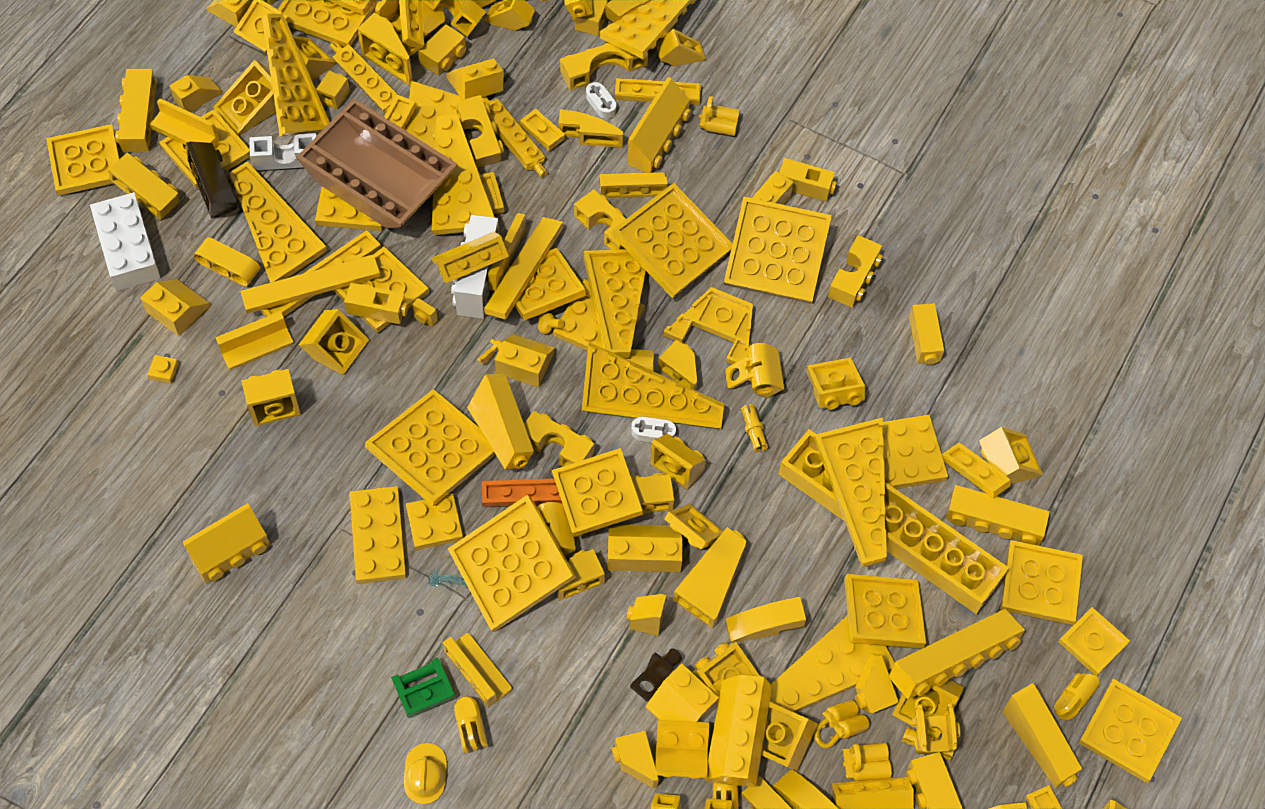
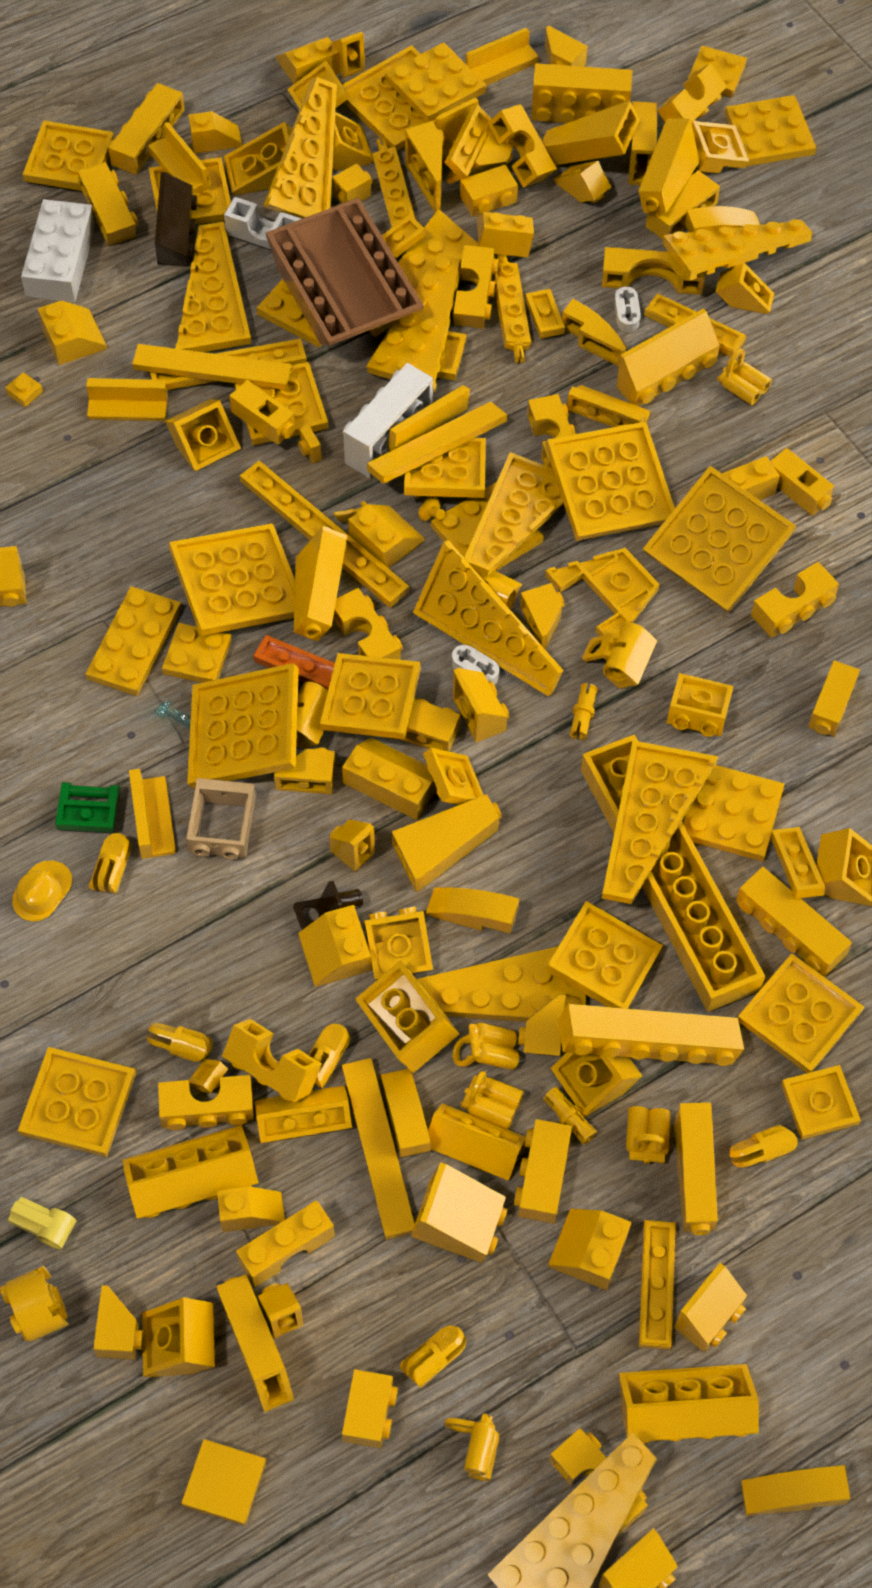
camera: 30 degrees right, 0 degrees up
(226, 261) = (145, 311): yellow beam -> none
(271, 397) = (105, 459): yellow brick -> none
(470, 256) = (378, 403): yellow panel -> none
(470, 377) = (309, 520): none -> yellow plate
(528, 622) = (220, 793): none -> tan window
(635, 757) = (255, 975): yellow slope -> none
(682, 749) = (305, 990): yellow bracket -> none
(739, 731) = (371, 999): yellow slope -> none
(946, 724) = (565, 1091): yellow piece -> none
(991, 729) = (648, 1134): none -> yellow piece
(1130, 730) = (802, 1212): yellow plate -> none

